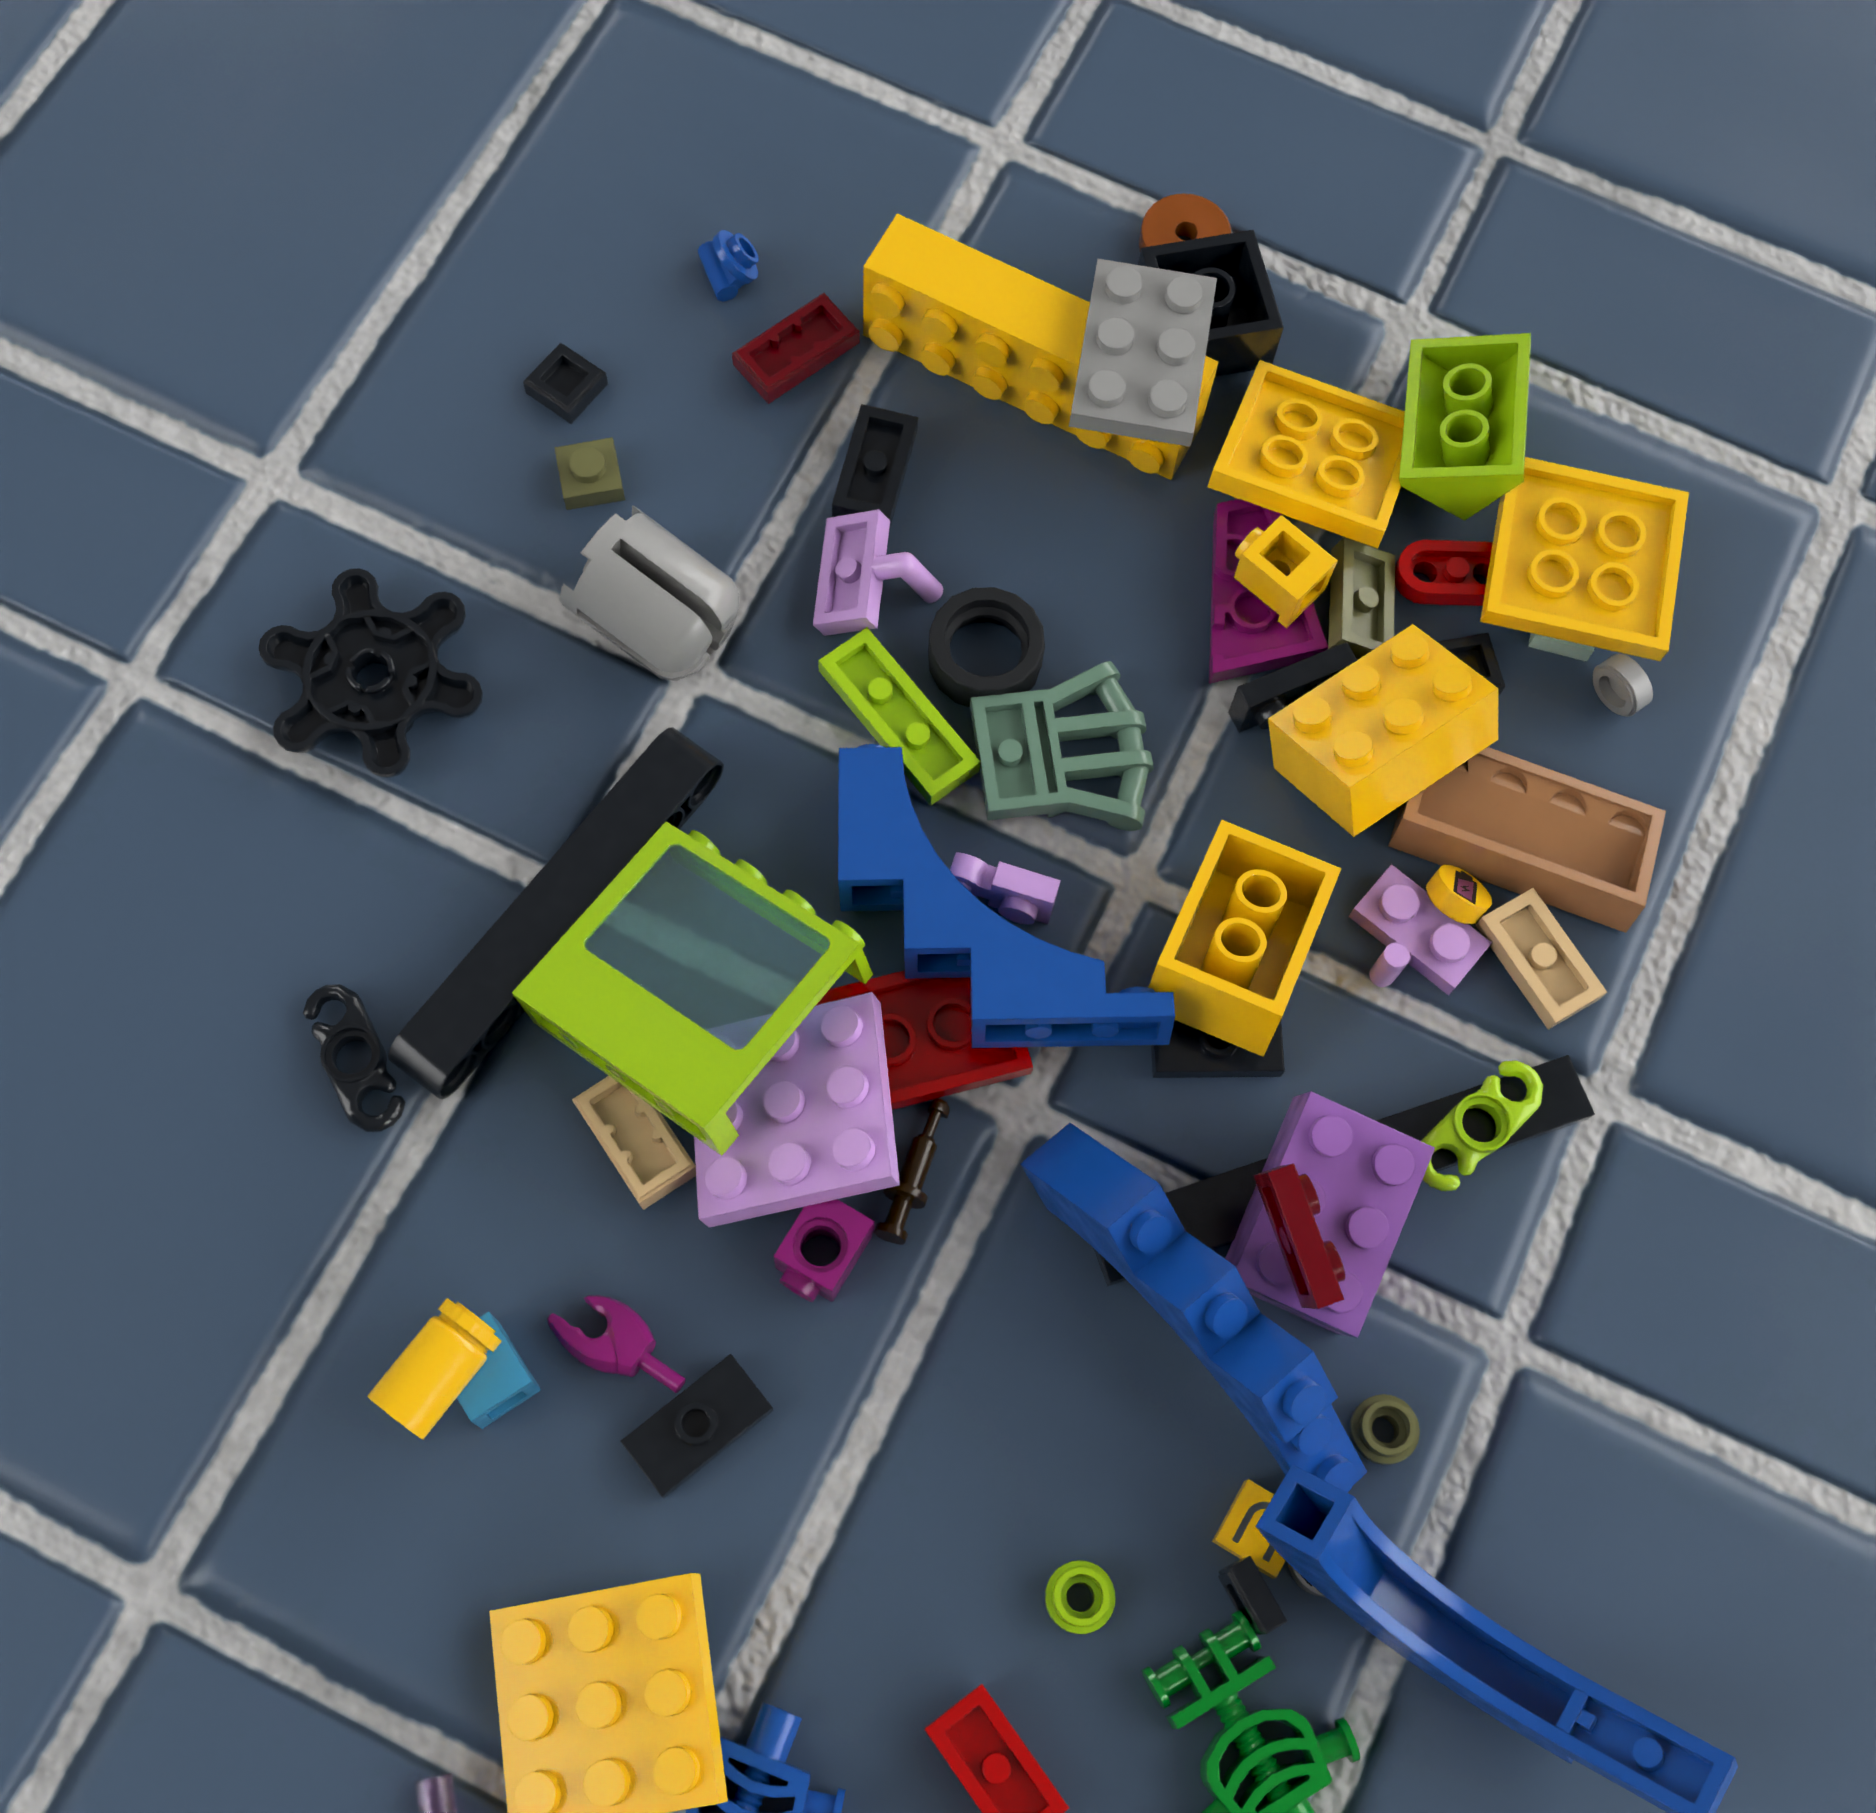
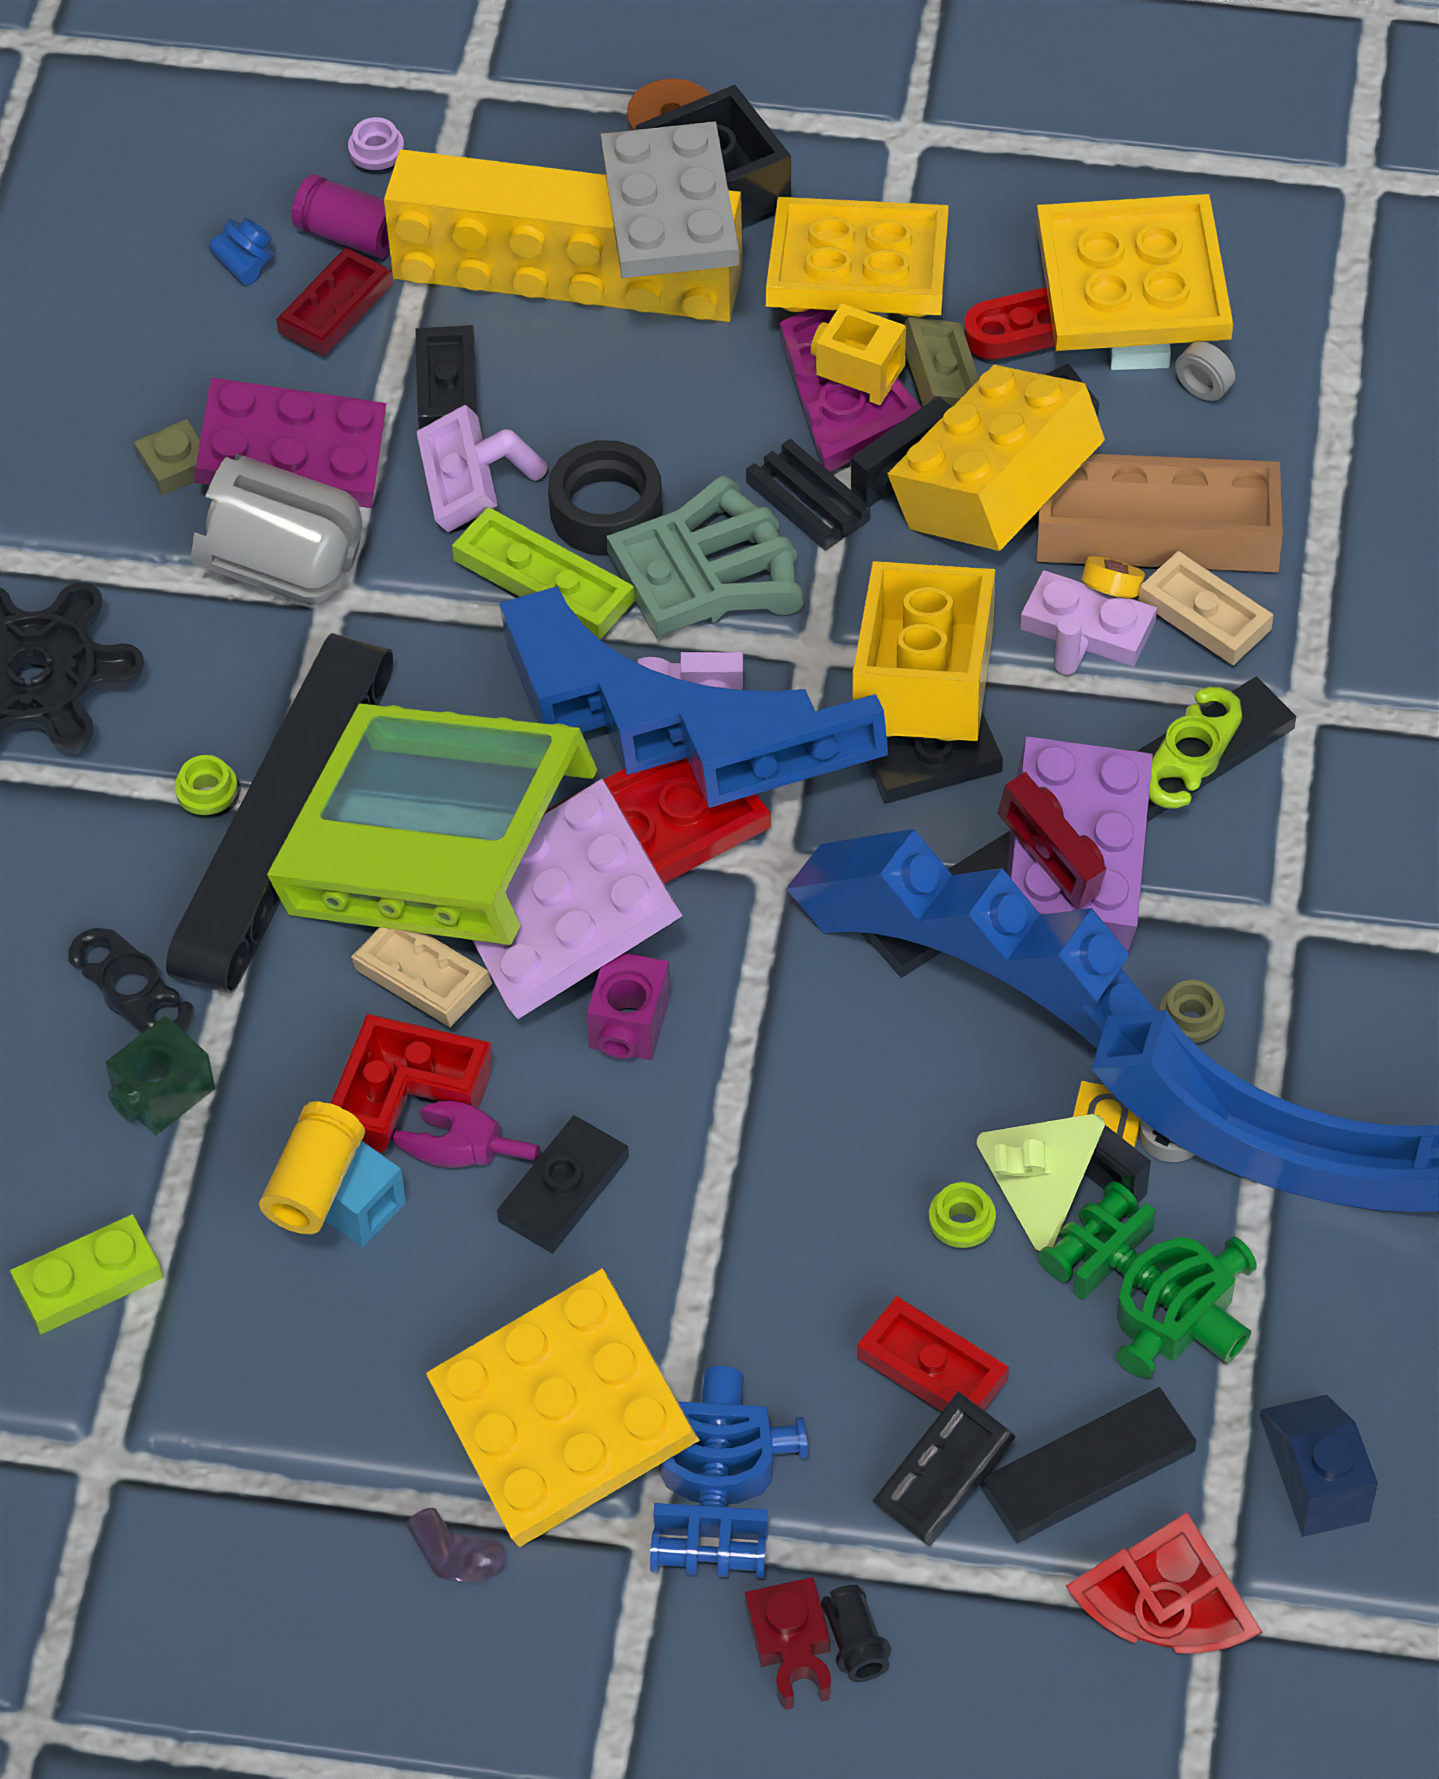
camera: 10 degrees left, 15 degrees down
(202, 1377) = (86, 1274): none -> lime plate
(367, 1191) = (159, 1052): none -> clear green brick
(493, 839) = (201, 773): none -> lime plate
(565, 383) = (122, 389): black tile -> none
(571, 1239) = (403, 1060): none -> red brick
(704, 492) = (294, 430): none -> magenta plate
(829, 253) = (341, 215): none -> magenta piece
(893, 173) = (375, 144): none -> lavender plate
(912, 1178) = (690, 947): dark brown piece -> none
(1175, 1576) = (1042, 1169): none -> yellowish green piece
(1221, 720) = (816, 489): none -> black tile
(1465, 420) = (986, 191): lime slope -> none

